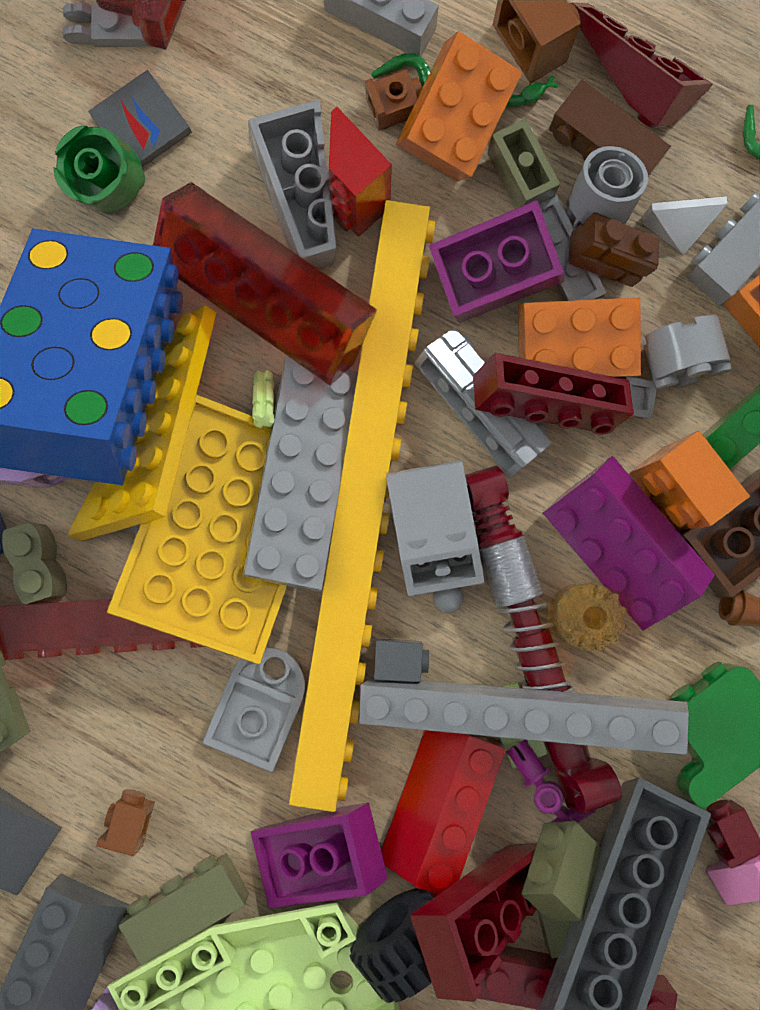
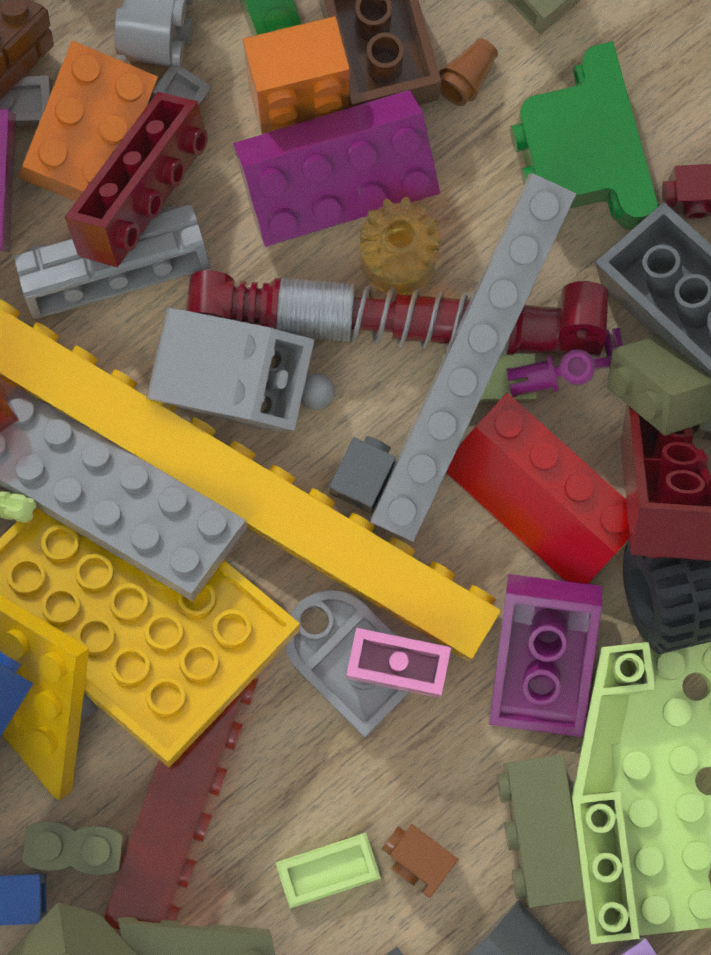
camera: 70 degrees left, 5 degrees down
(95, 754) = (328, 870): none -> yellowish green tile
(261, 751) = (398, 663): none -> bright pink brick

